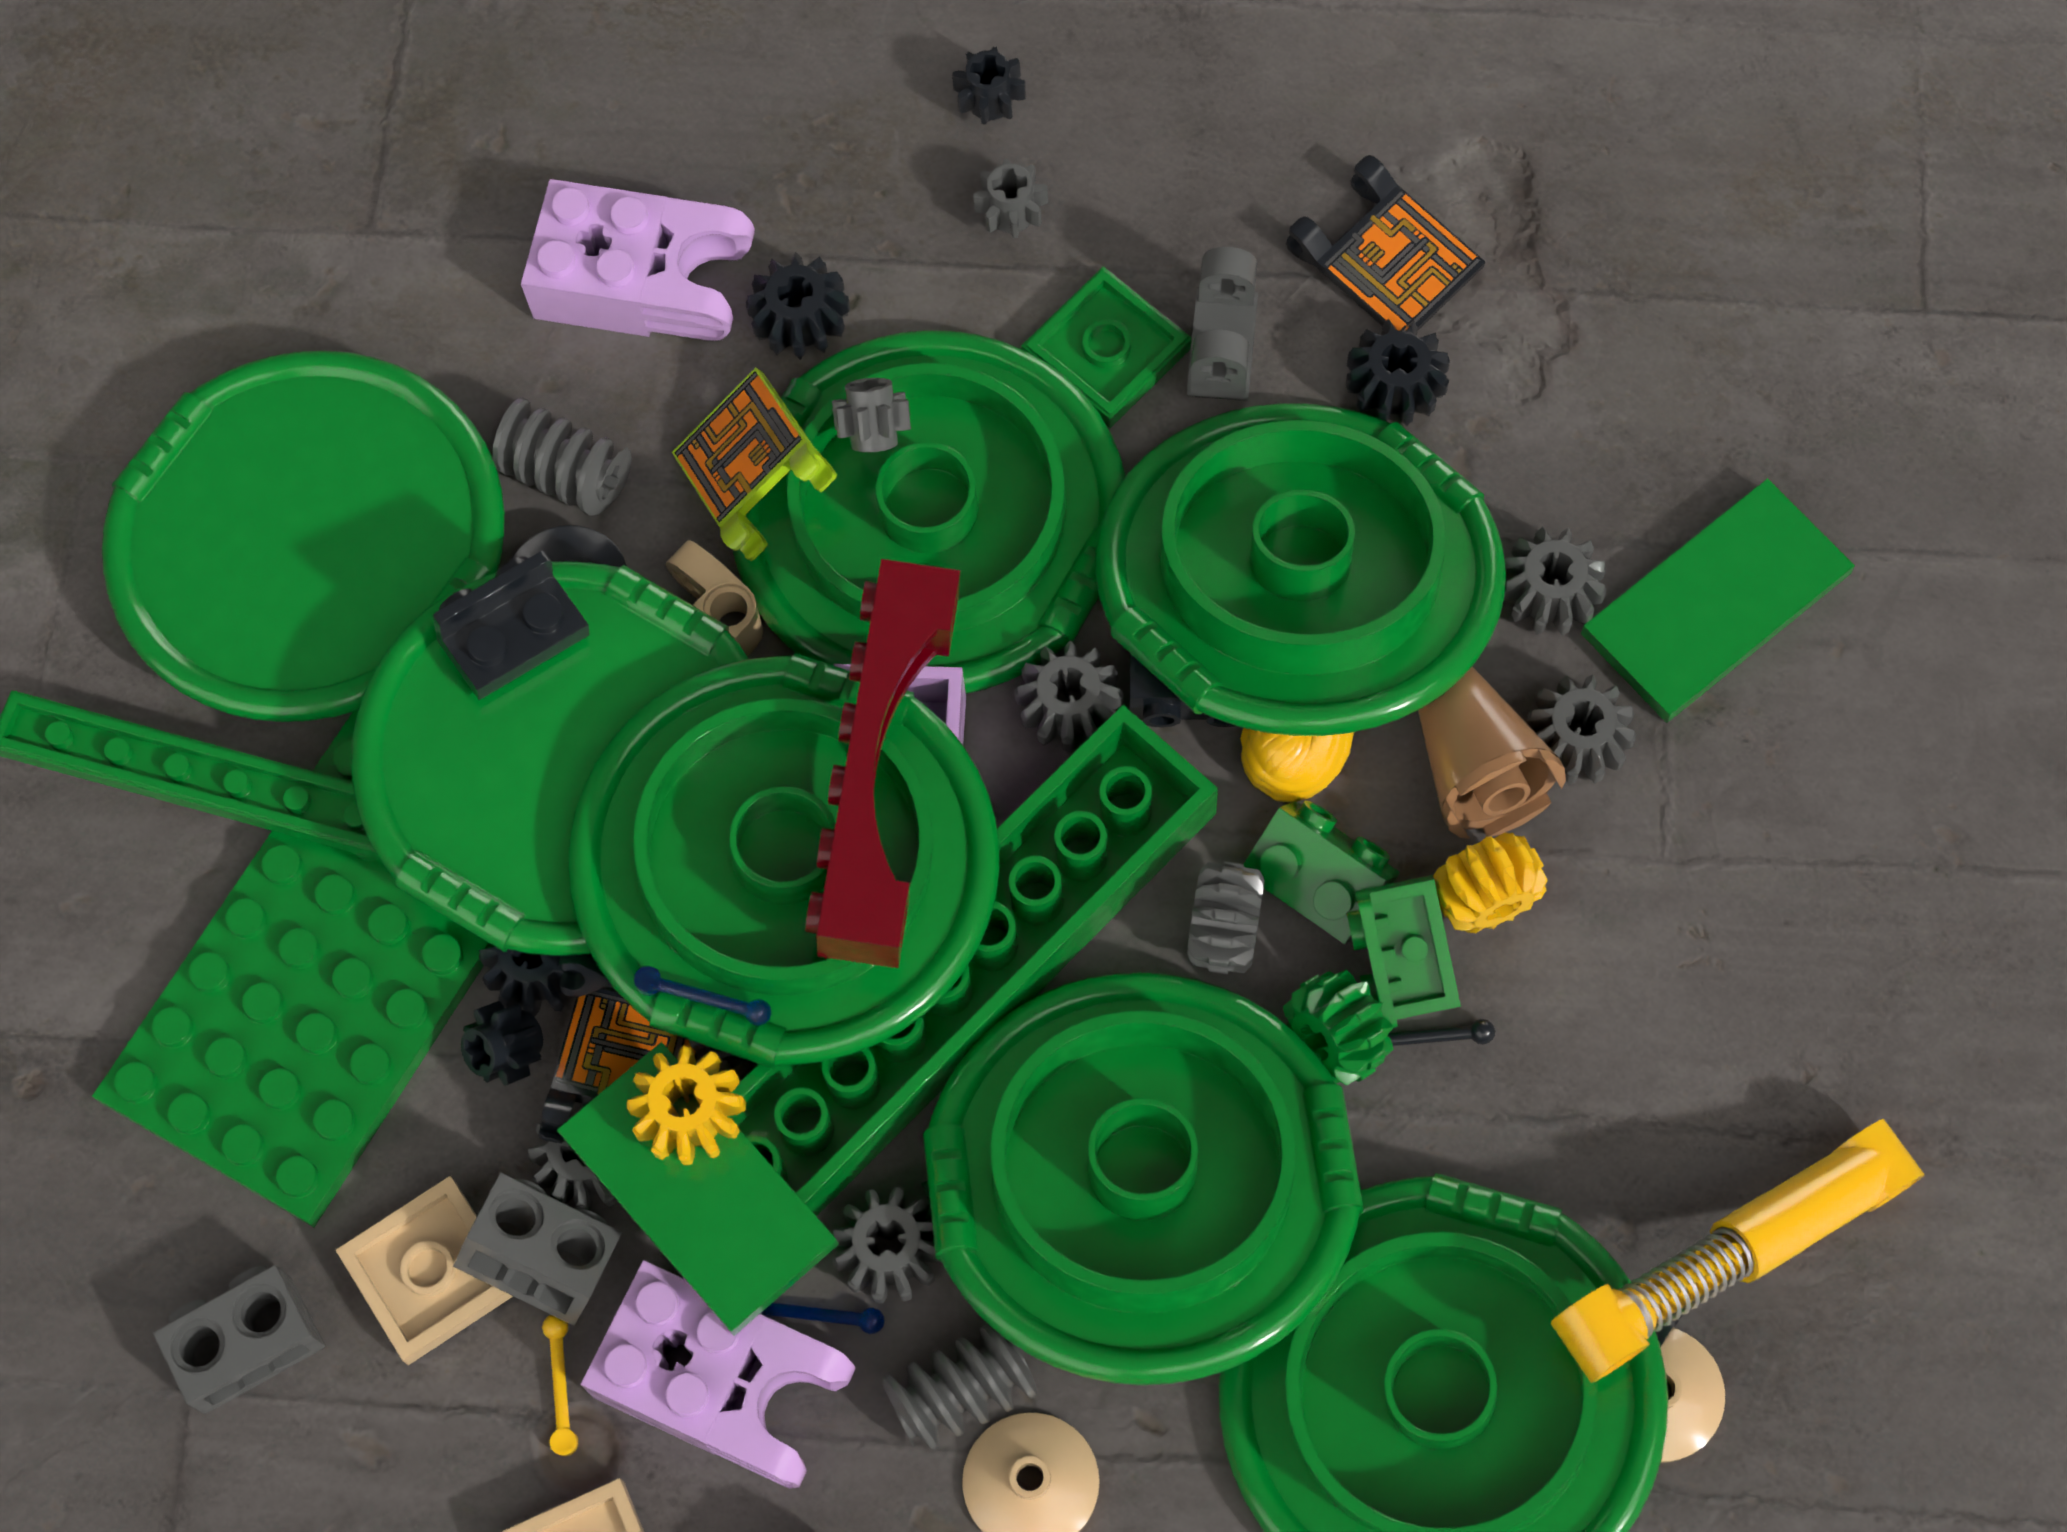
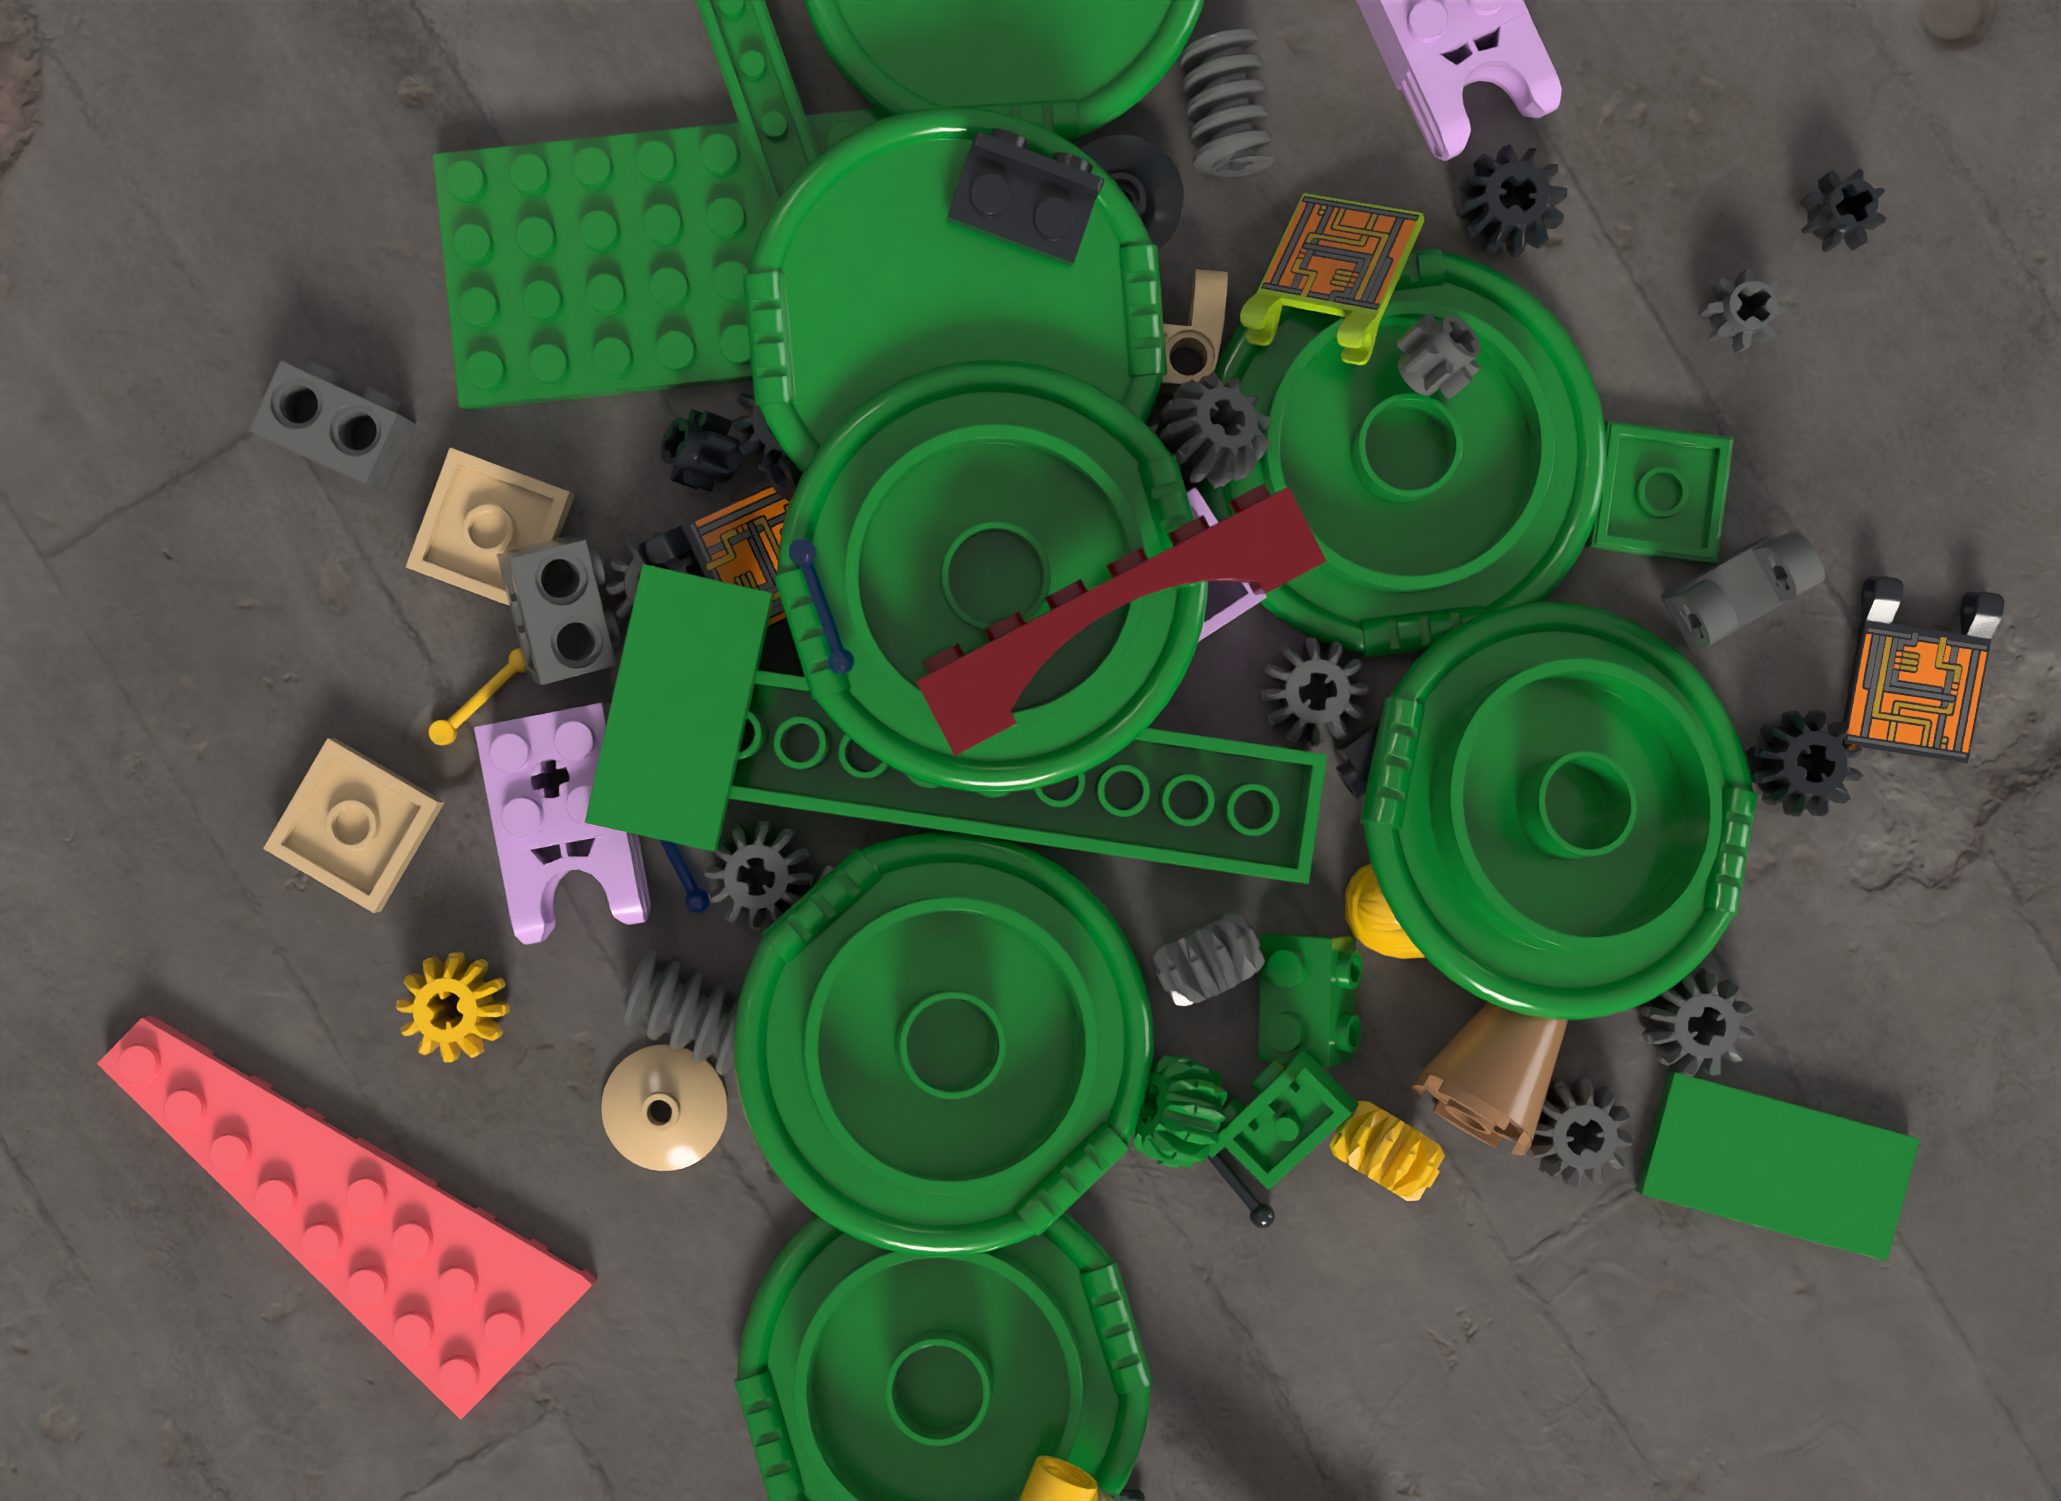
camera: 50 degrees right, 20 degrees up
(661, 1120) = (709, 644): yellow gear -> none
(801, 618) = (1214, 430): none -> dark grey gear

